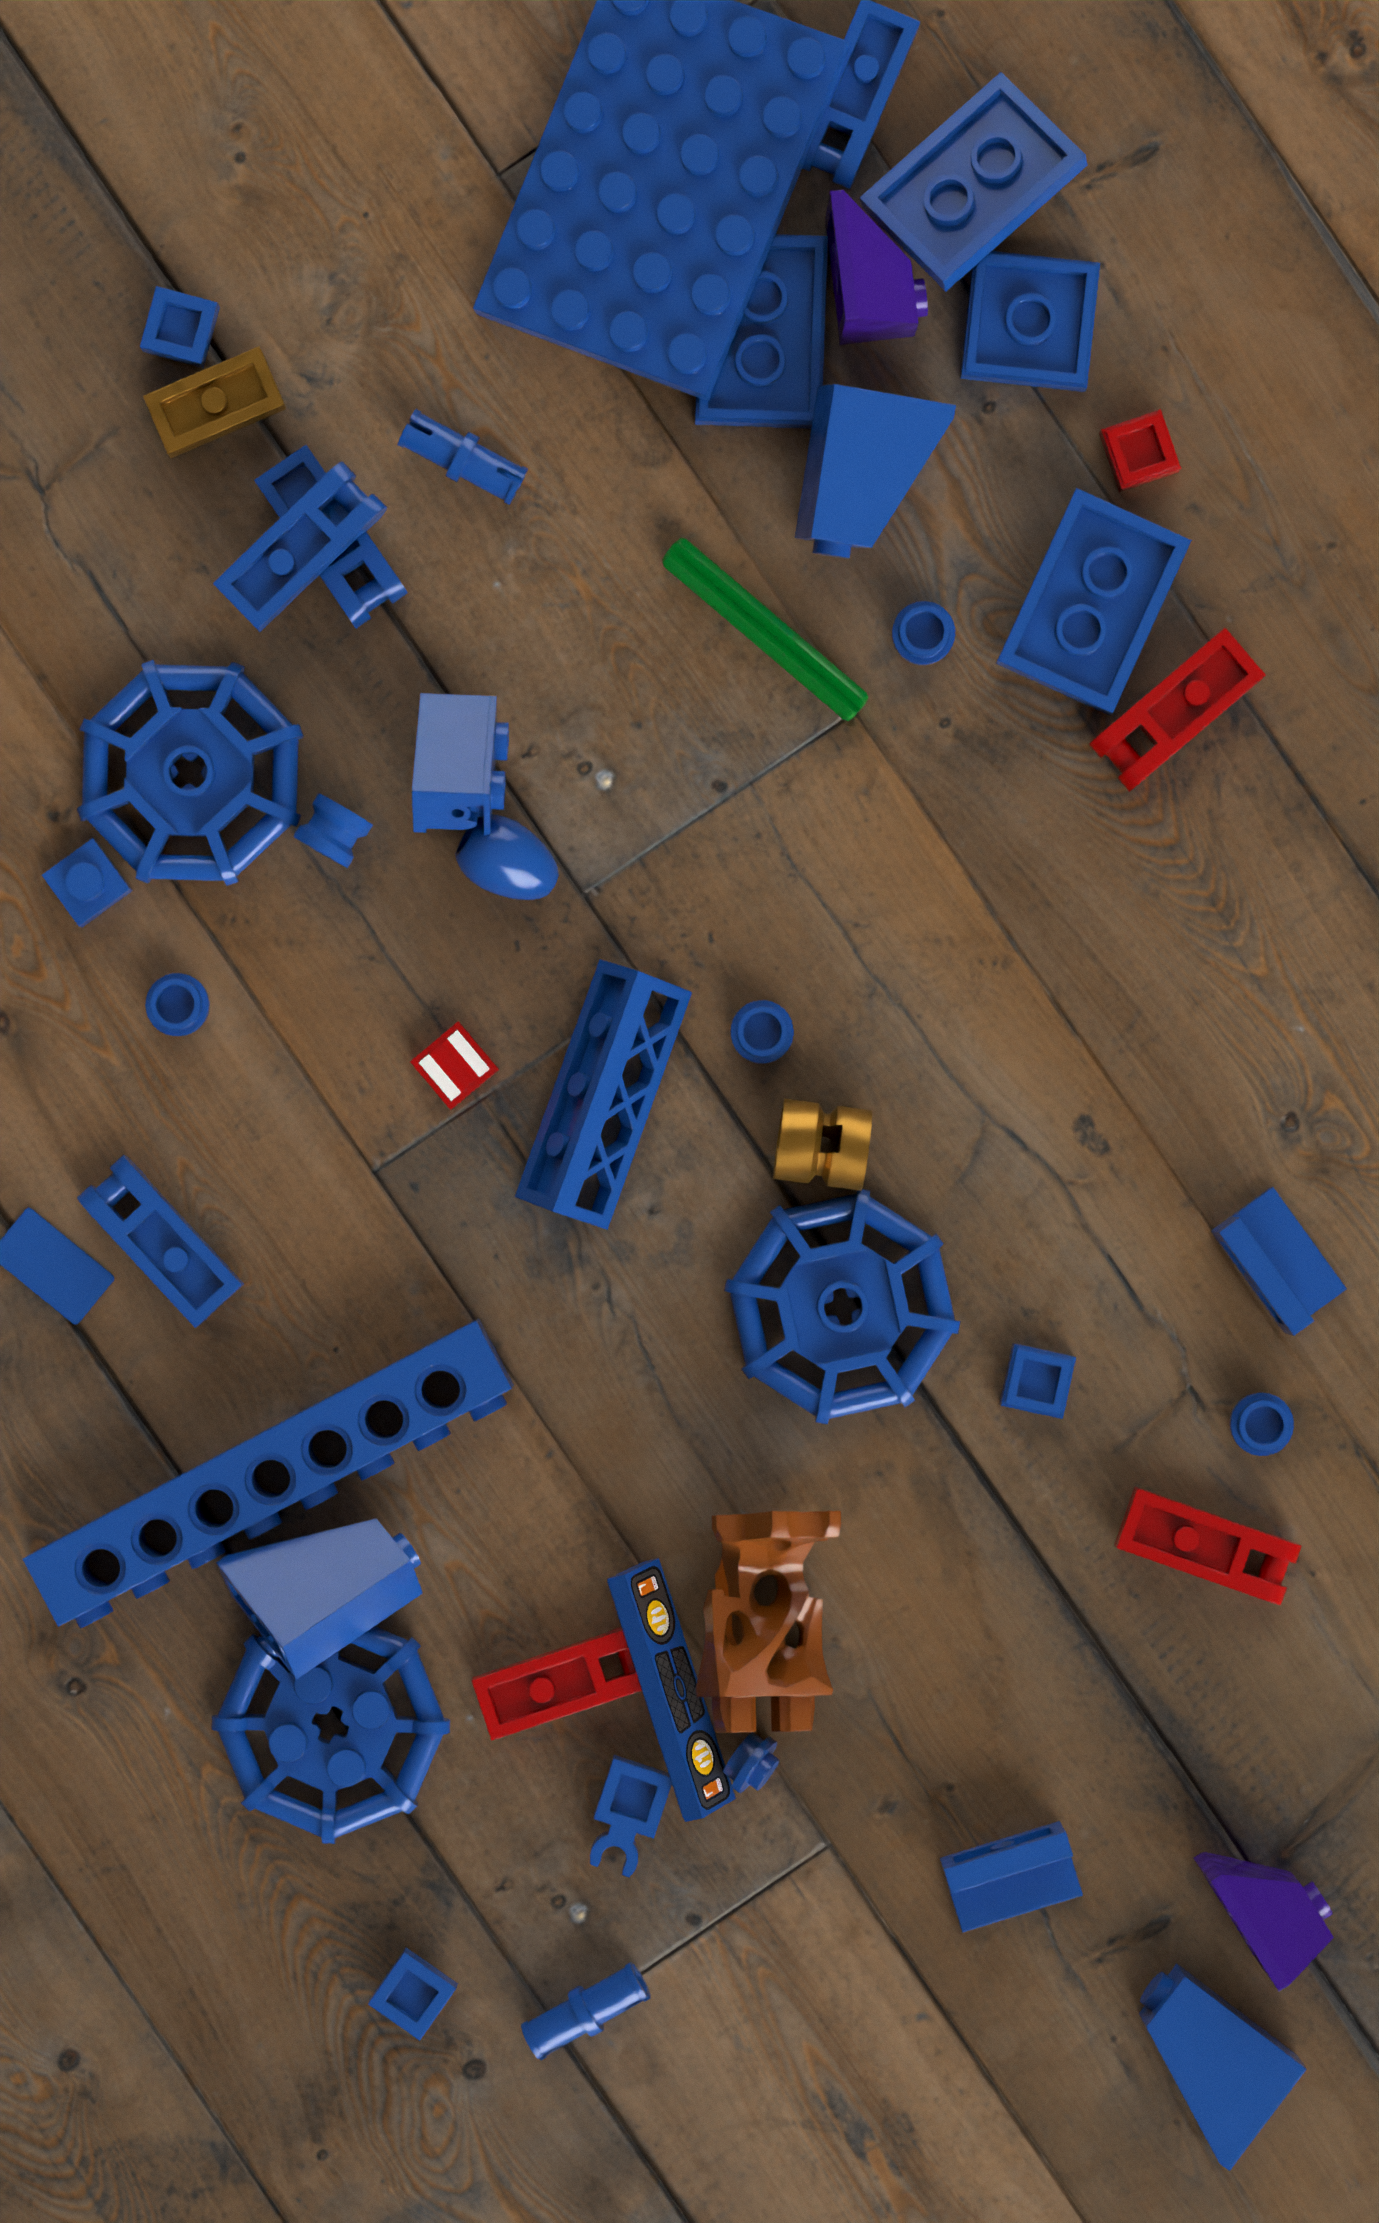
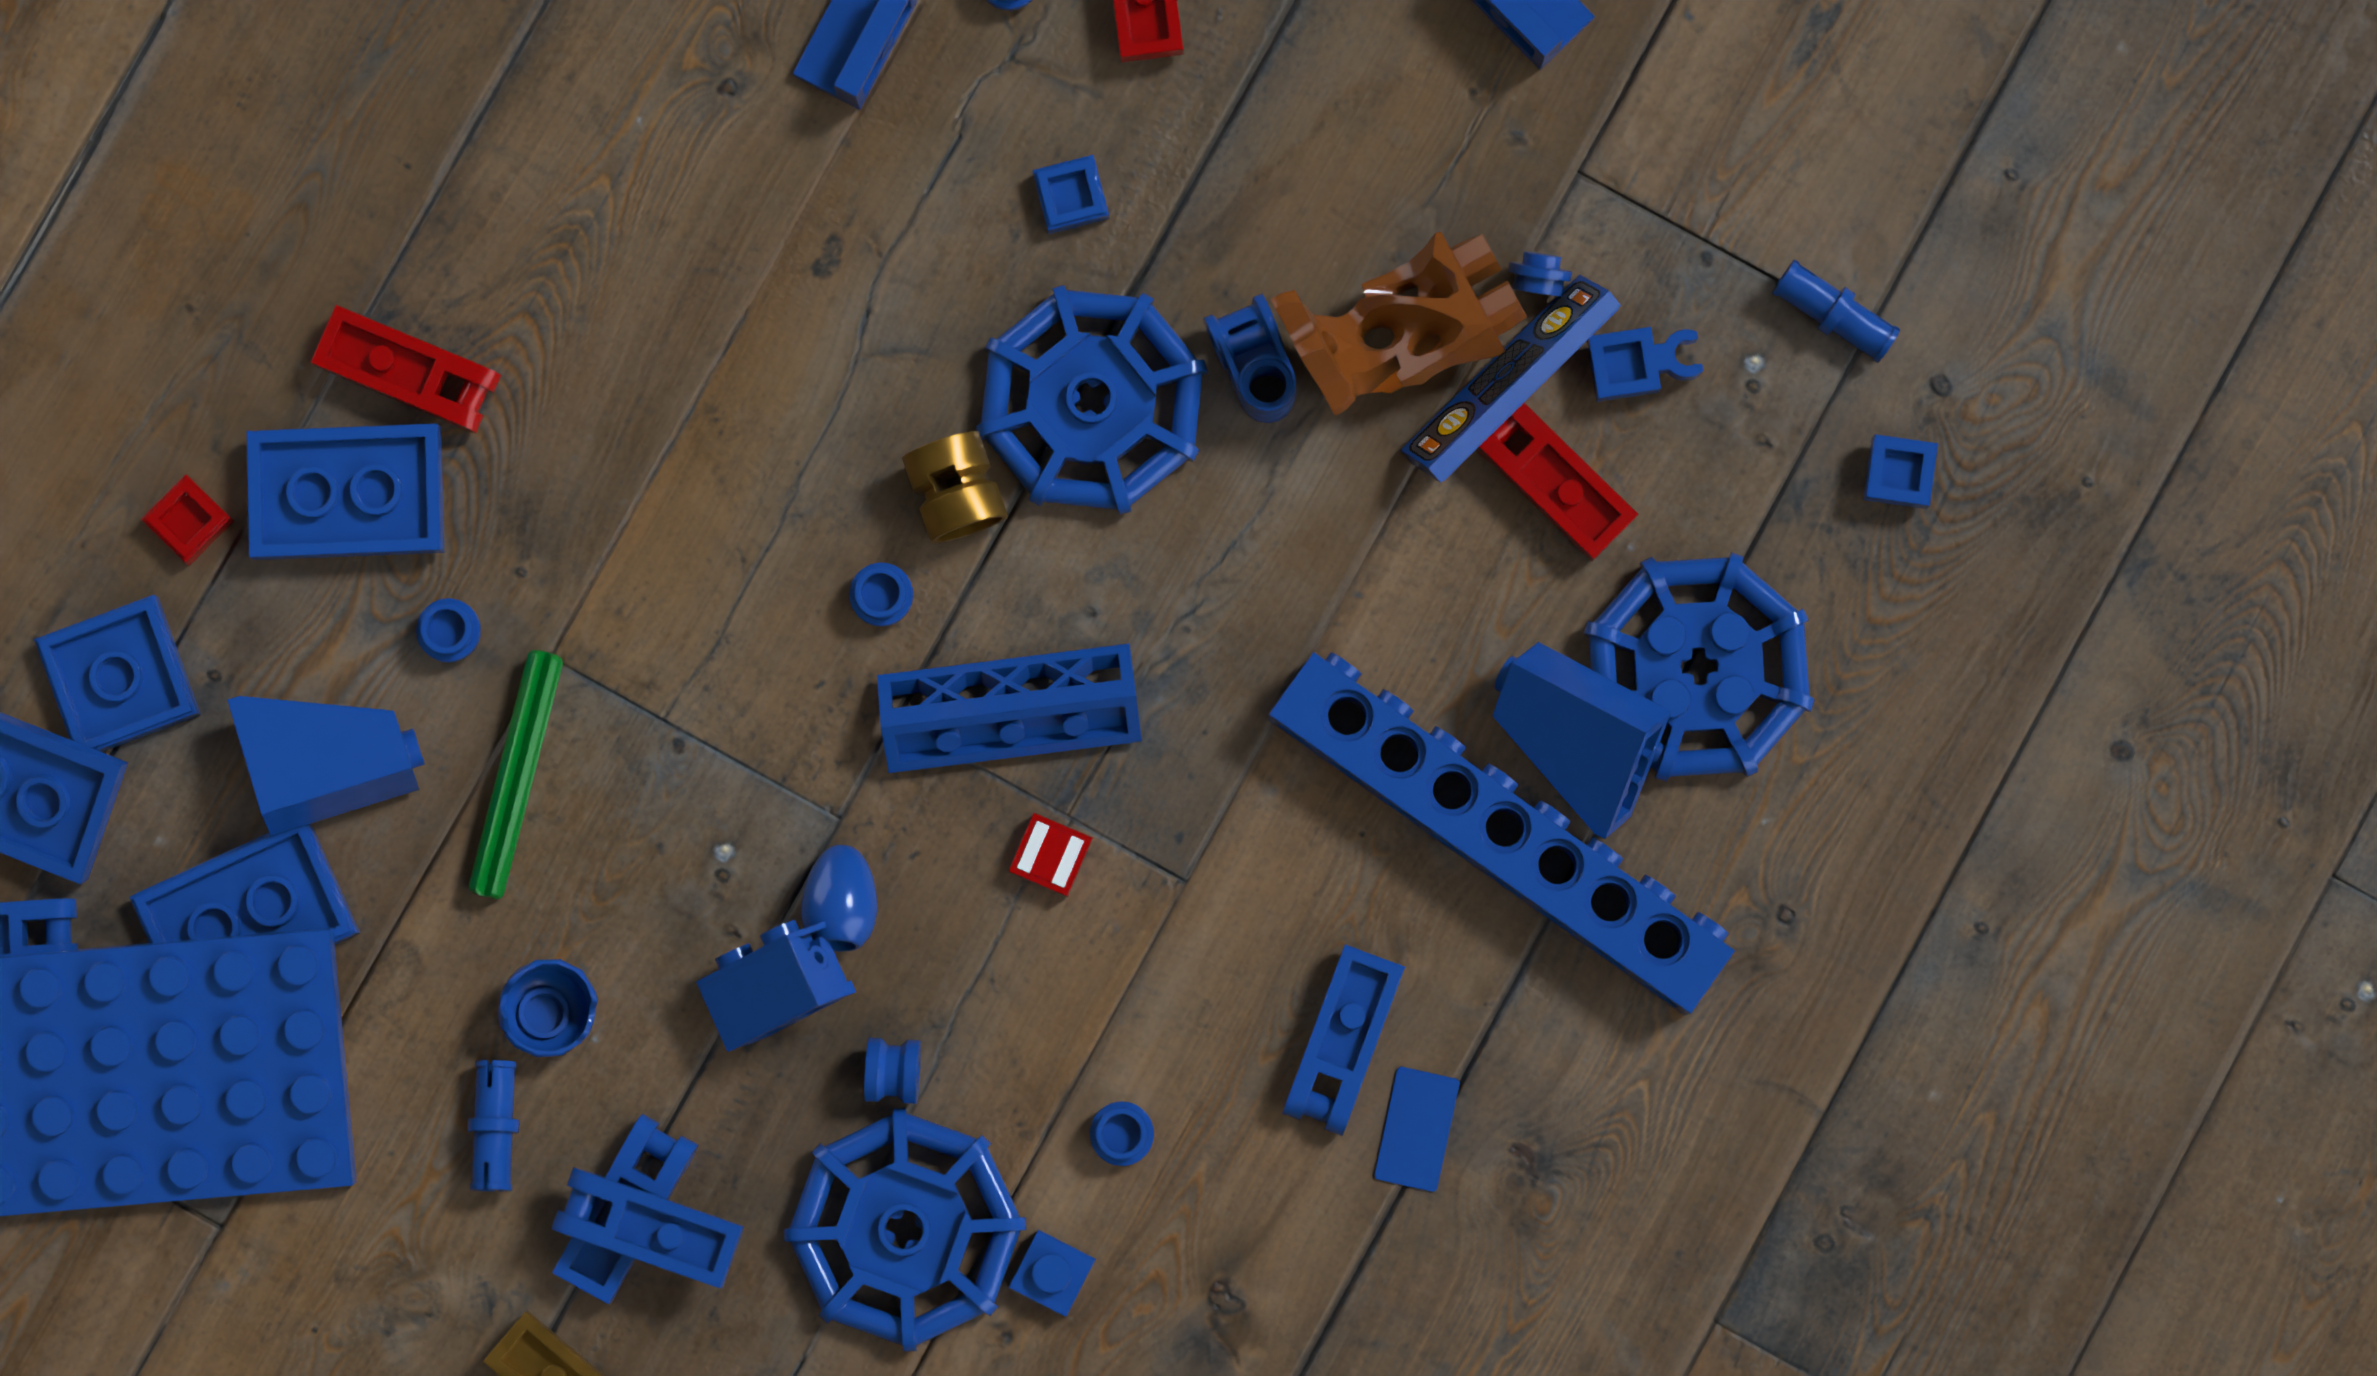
camera: 120 degrees left, 5 degrees down
(540, 554) = (547, 1008): none -> blue hair
(809, 1470) = (1253, 348): none -> blue piece
(869, 277) = (148, 838): dark purple slope -> none

